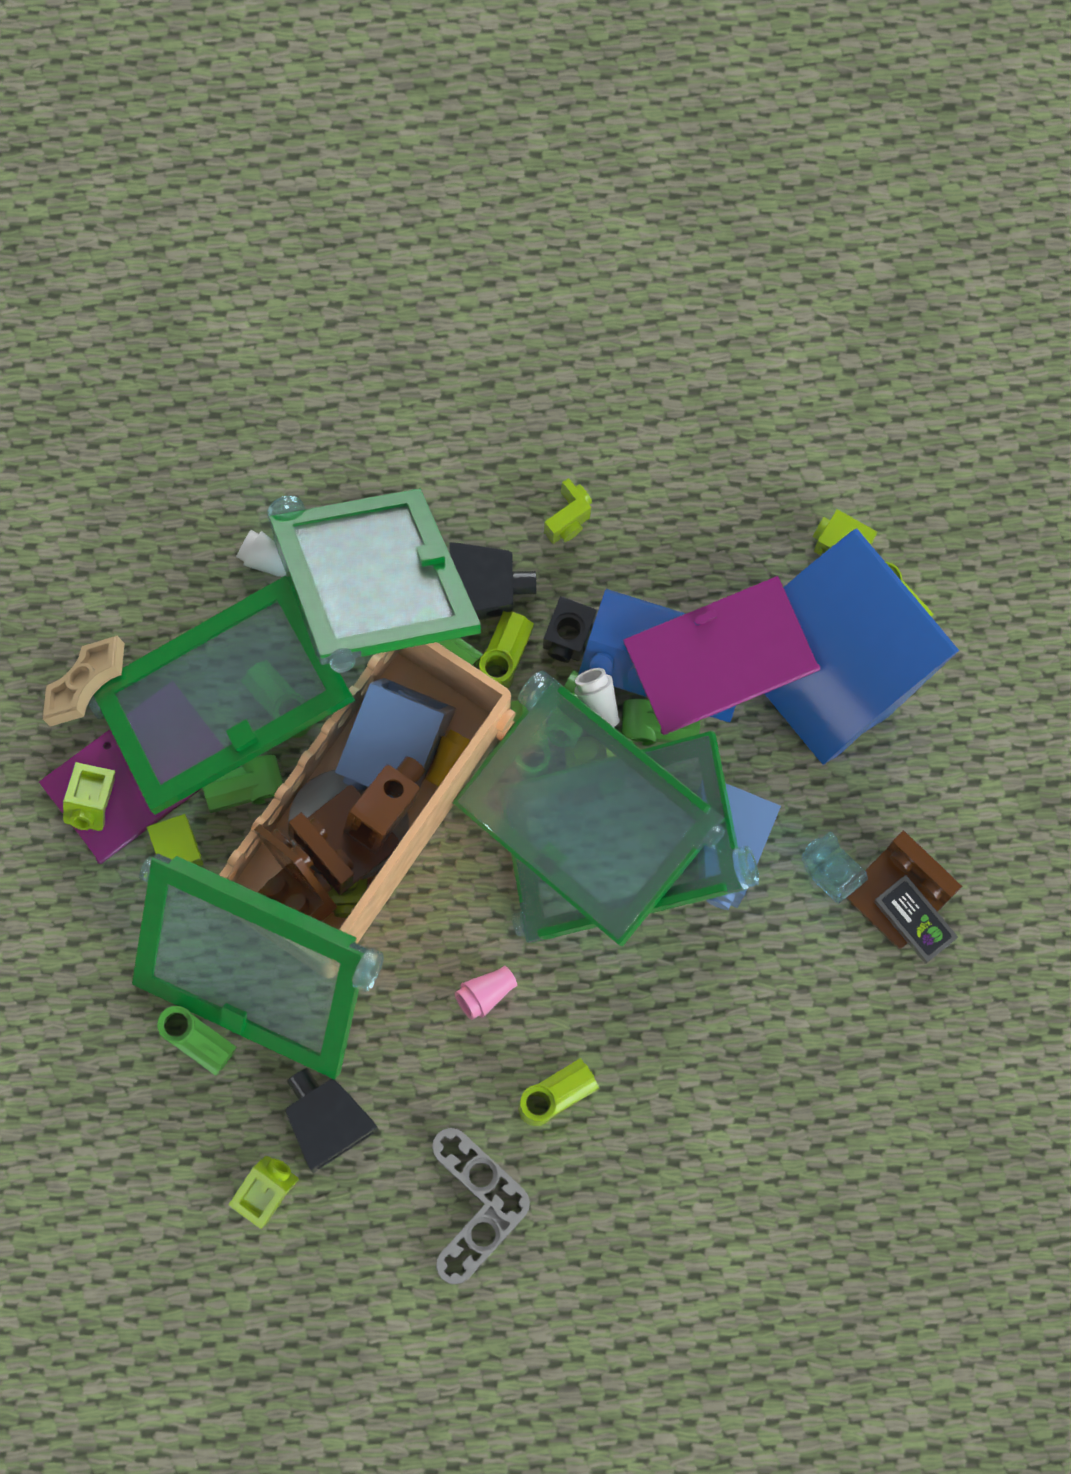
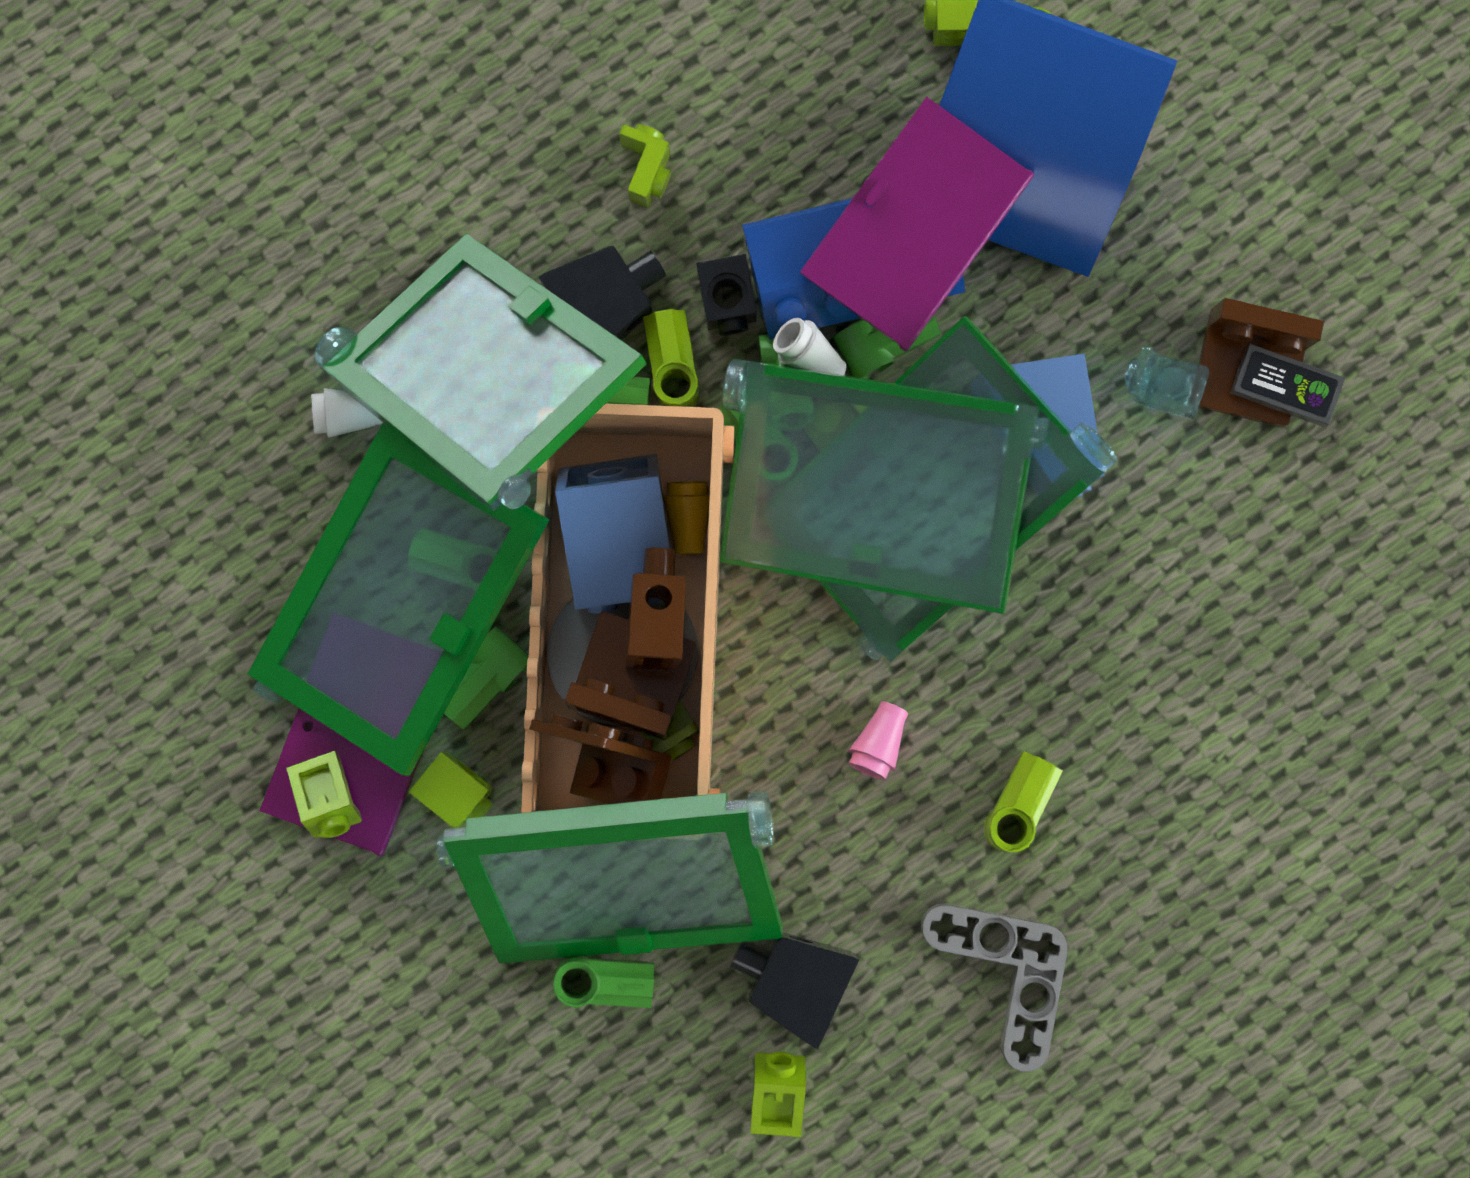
camera: 25 degrees left, 10 degrees up
(95, 666) = (232, 693): tan tile -> none

